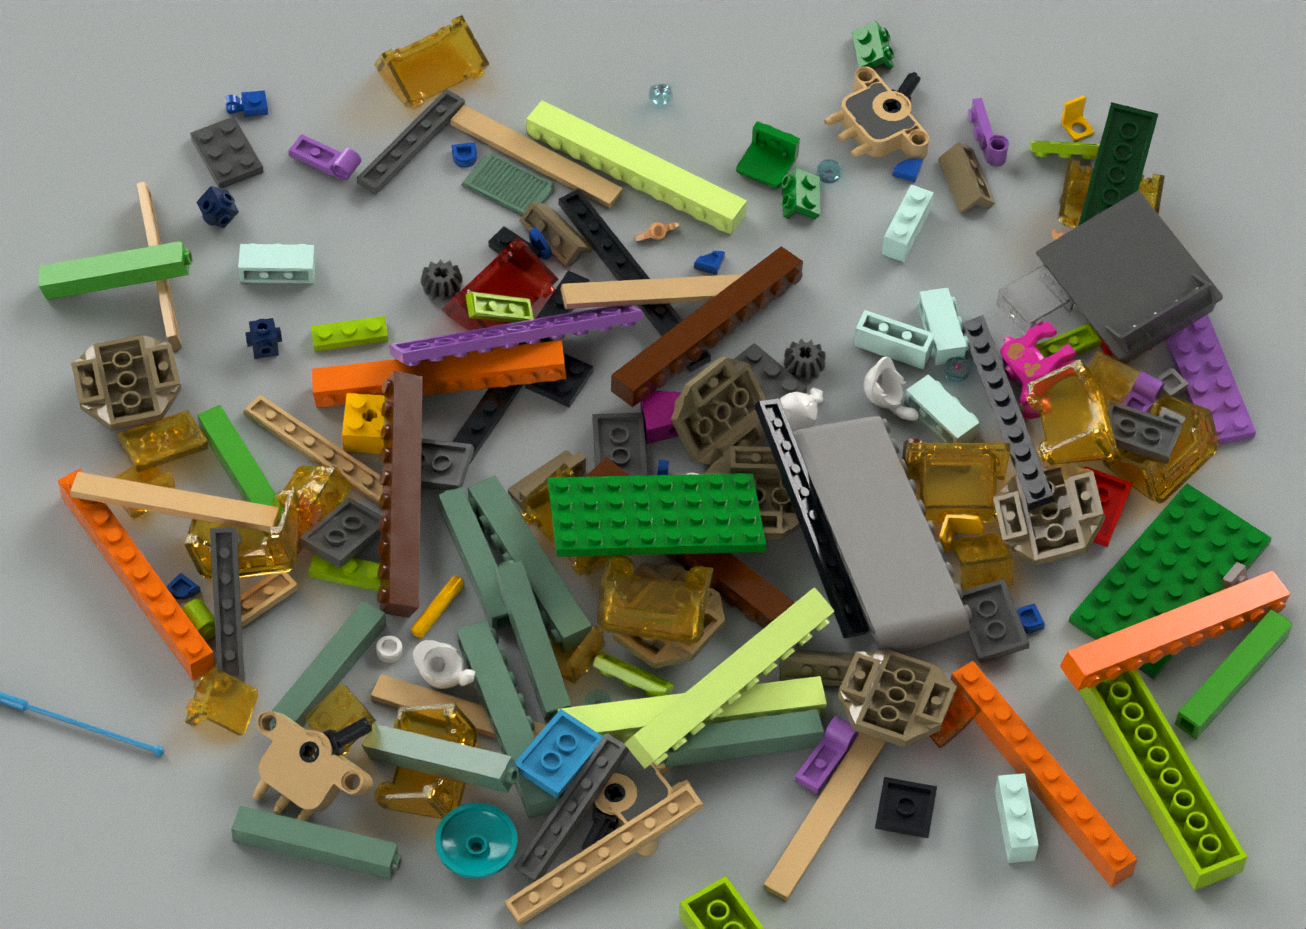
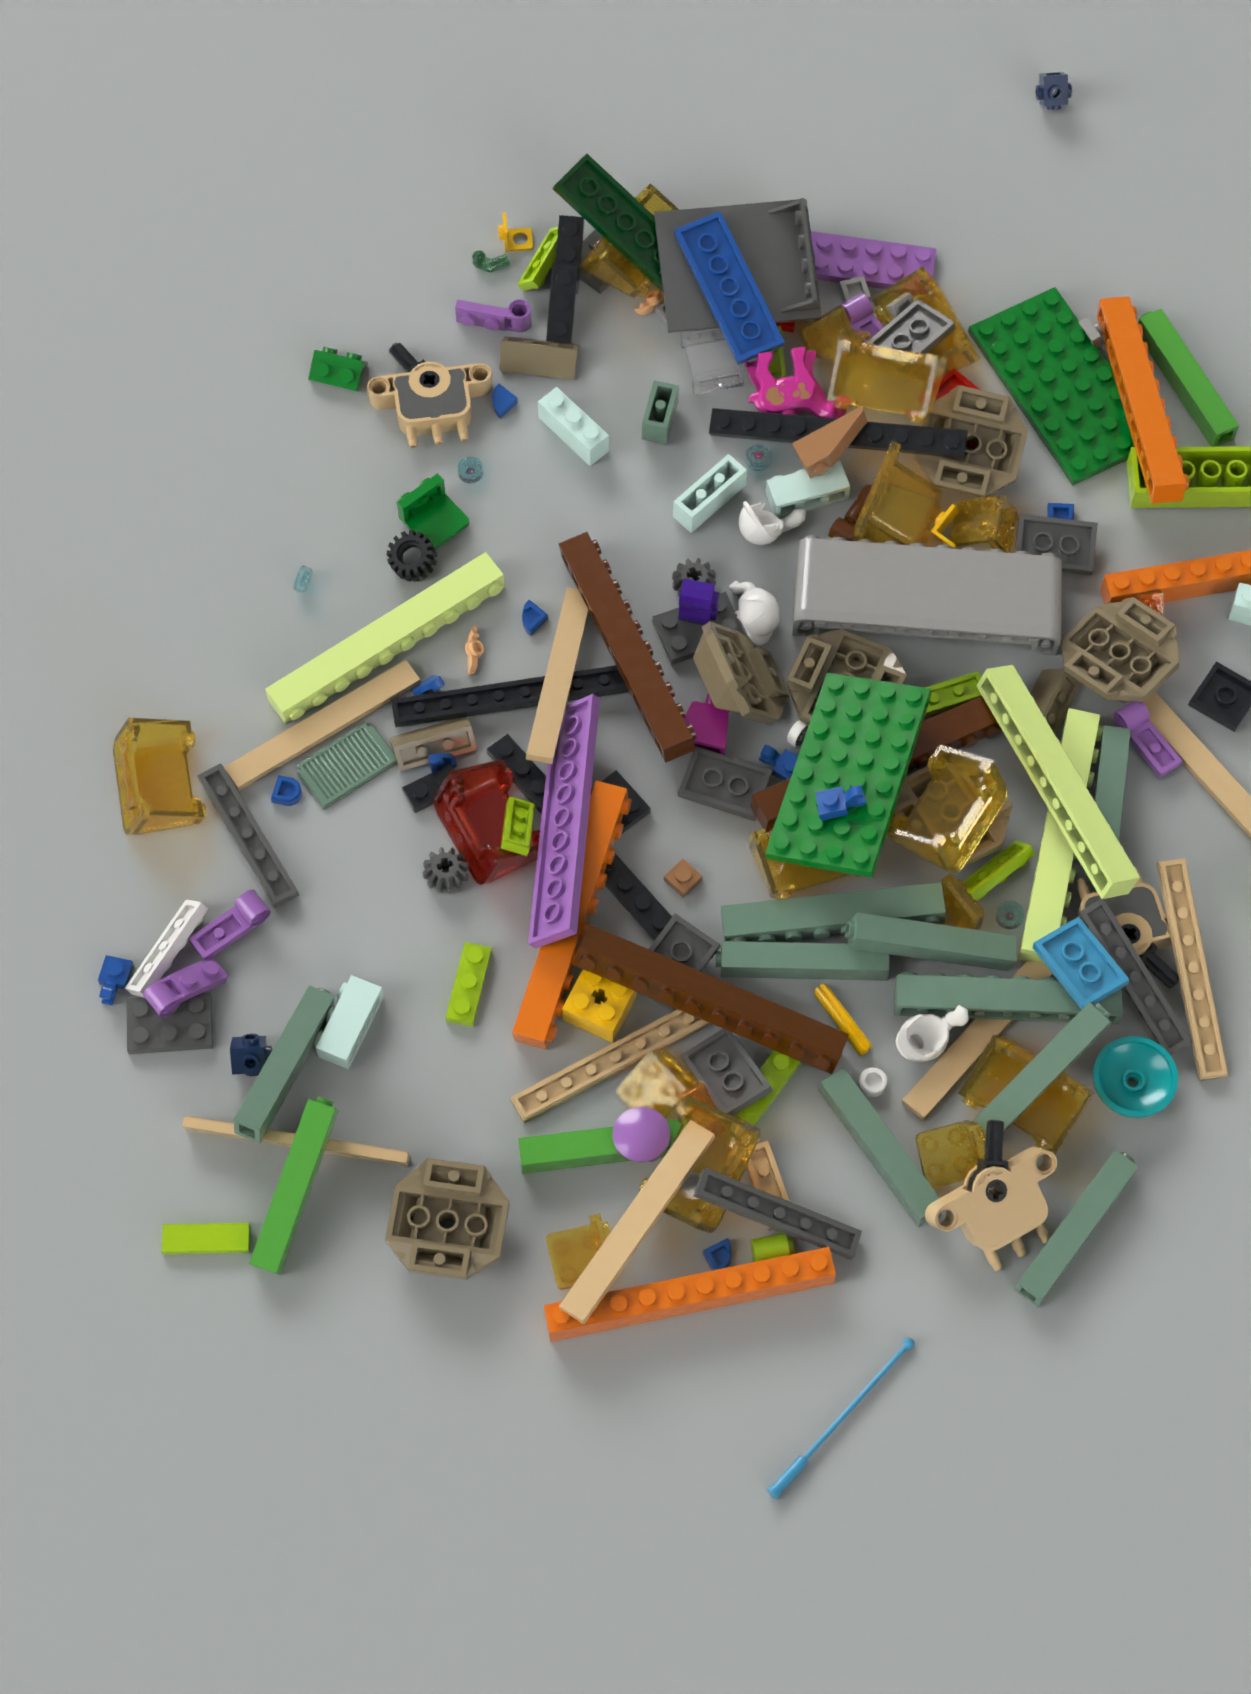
camera: 65 degrees left, 10 degrees up
(54, 236) = (205, 1238): none -> lime tile
(162, 441) = (534, 1213): clear yellow plate -> none
(213, 227) = (283, 1065): none -> sand green brick
(222, 701) = (878, 1264): clear yellow bracket -> none
(256, 483) = (641, 1134): none -> medium lavender dish
(258, 143) = (184, 984): none -> medium lavender plate
(263, 338) = (446, 1075): dark blue brick -> none
(276, 125) = (167, 947): none -> white plate
(516, 449) = (683, 878): none -> medium nougat plate
(522, 488) = (732, 863): dark tan panel -> none
(606, 212) = (432, 682): none -> blue tile
(614, 504) = (834, 801): none -> blue plate
(717, 147) = (402, 545): none -> black tyre
(771, 356) = (698, 602): none -> dark purple brick
(783, 576) = (953, 693): none -> lime plate
(801, 194) = (490, 505): green bracket -> none
(811, 518) = (893, 641): black plate -> none
(940, 317) = (704, 446): light aqua brick -> none
(958, 275) = (660, 412): none -> sand green brick
(982, 399) = (826, 445): none -> medium nougat slope
(1038, 114) = (488, 264): none -> clear green arm
(1043, 163) = (565, 279): none -> black bracket
(1098, 273) = (728, 287): none -> blue plate

